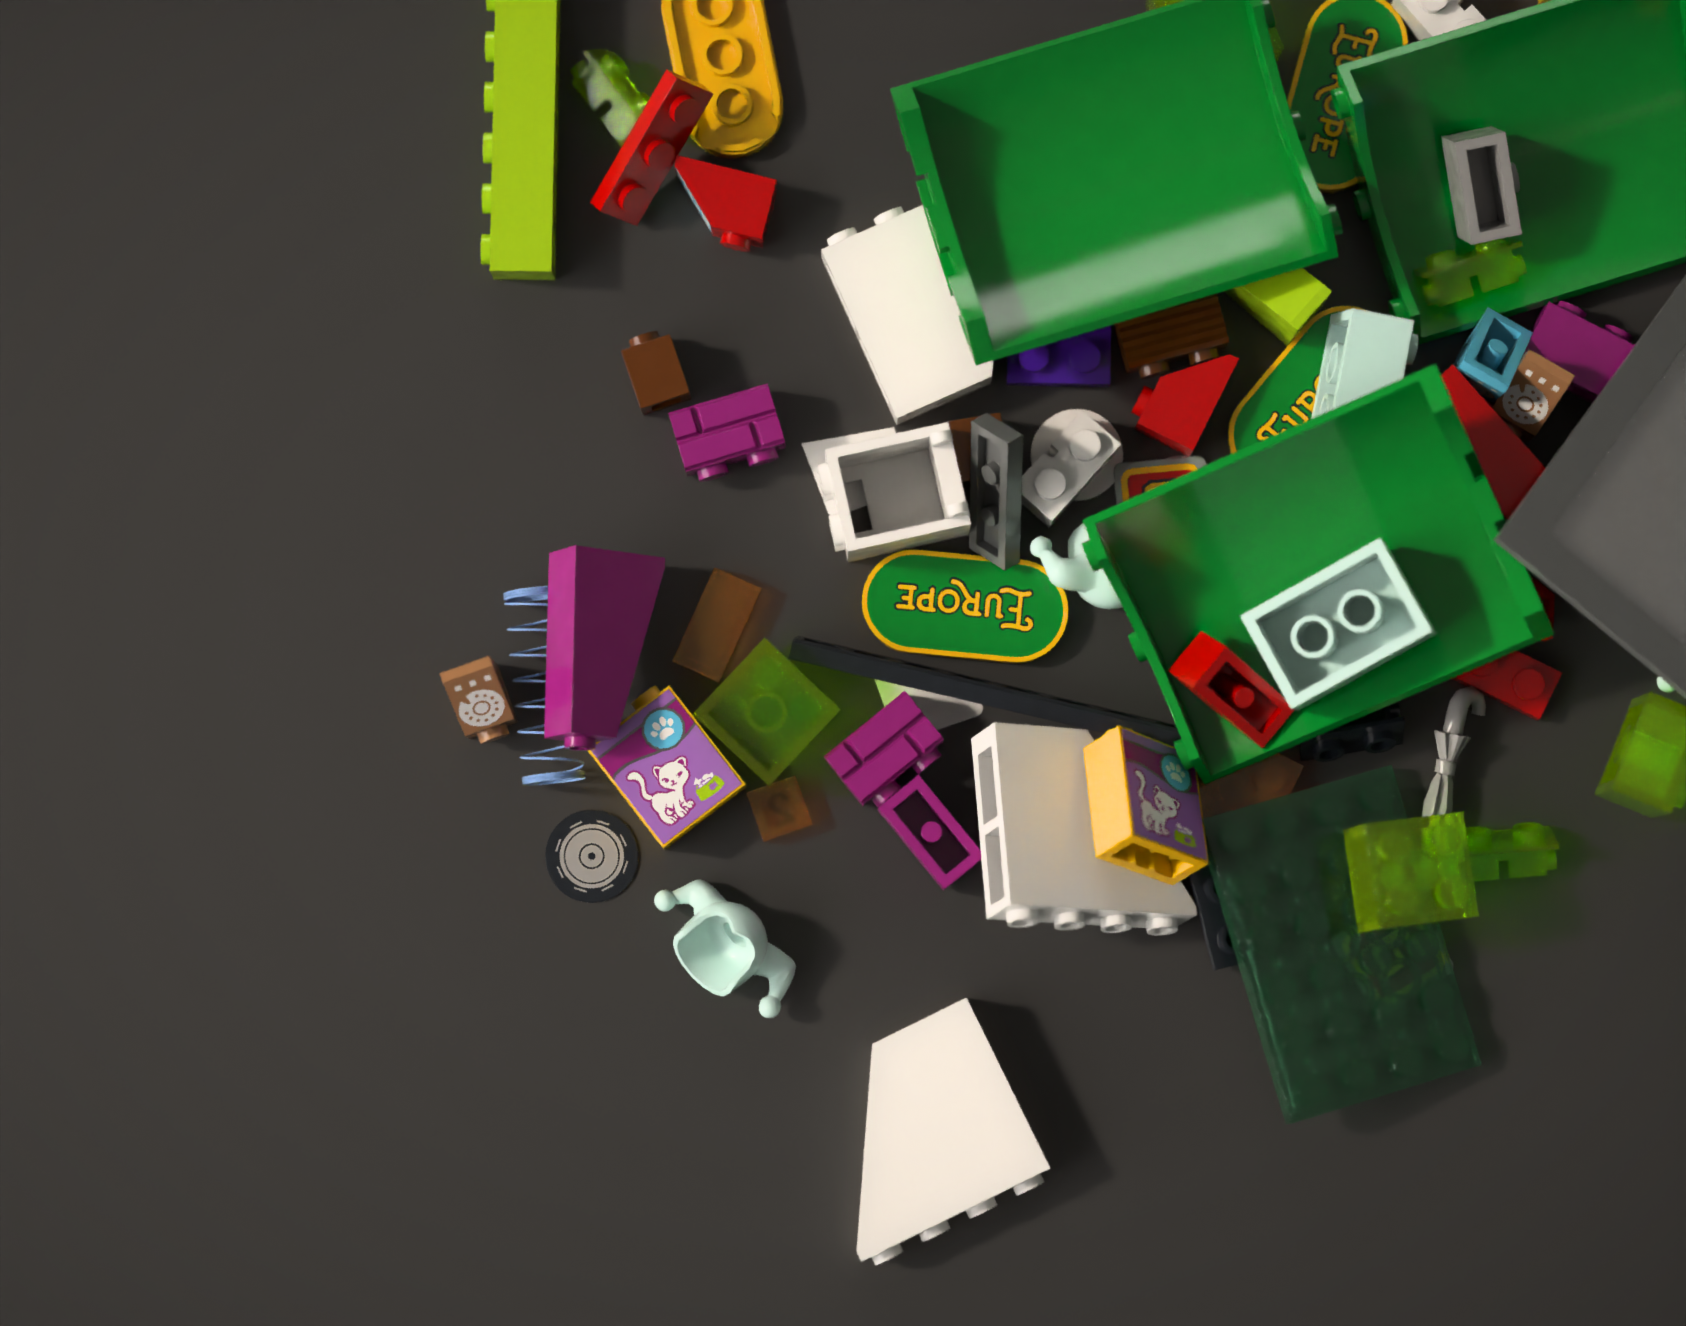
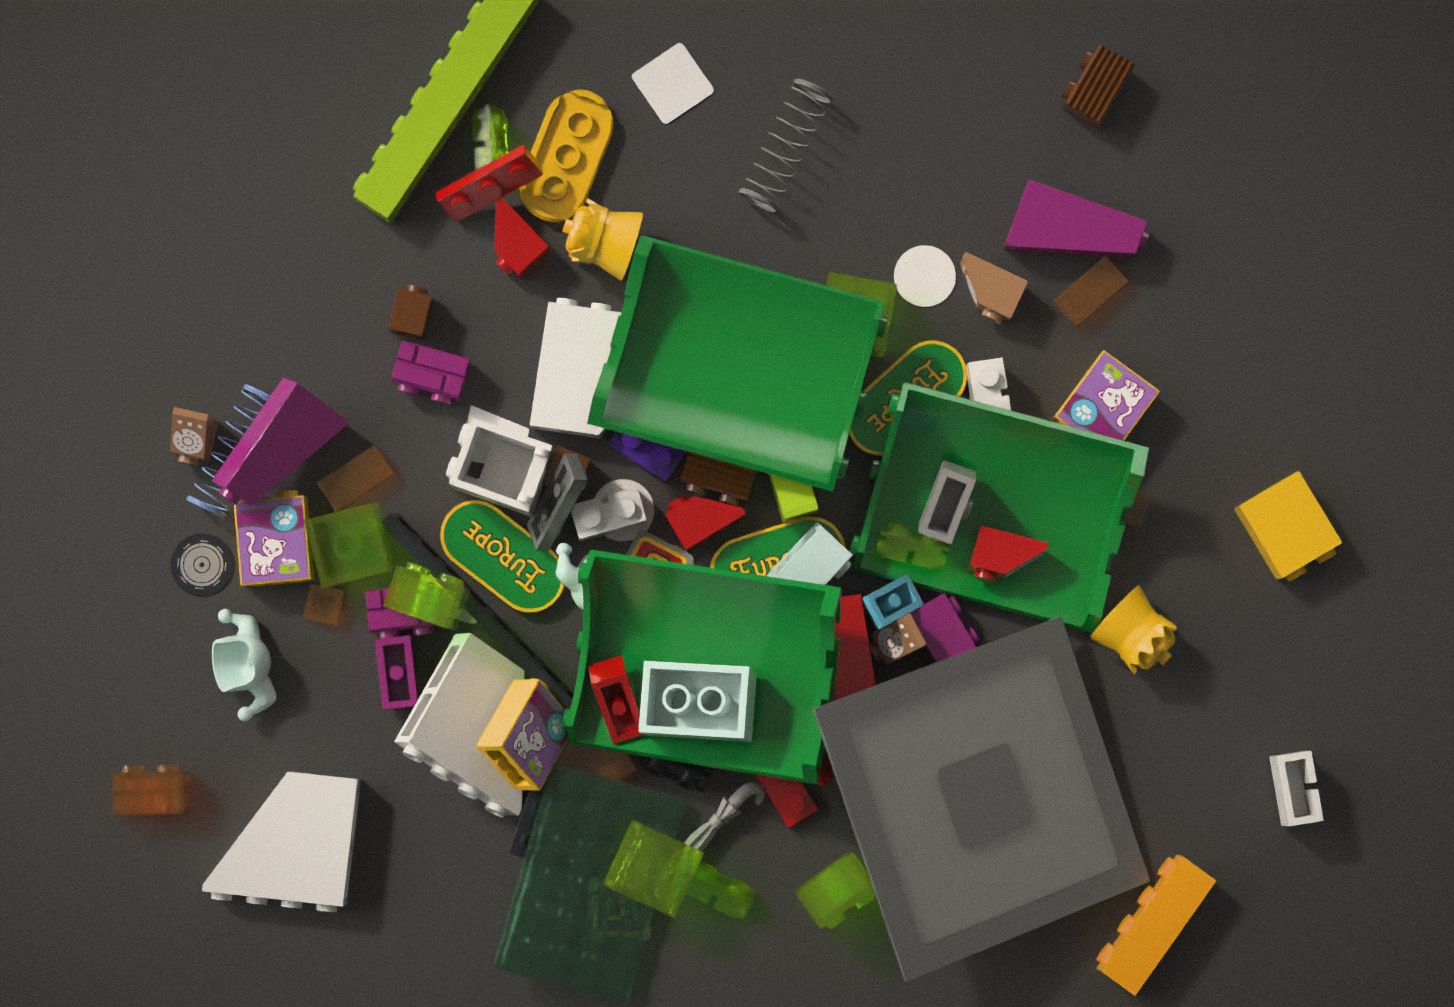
camera: 25 degrees right, 0 degrees up
(712, 1180) = (150, 792): none -> clear orange brick
(839, 126) = (603, 237): none -> yellow hat
(913, 709) = (427, 597): none -> clear neon green brick
(1586, 208) = (1001, 553): none -> red slope

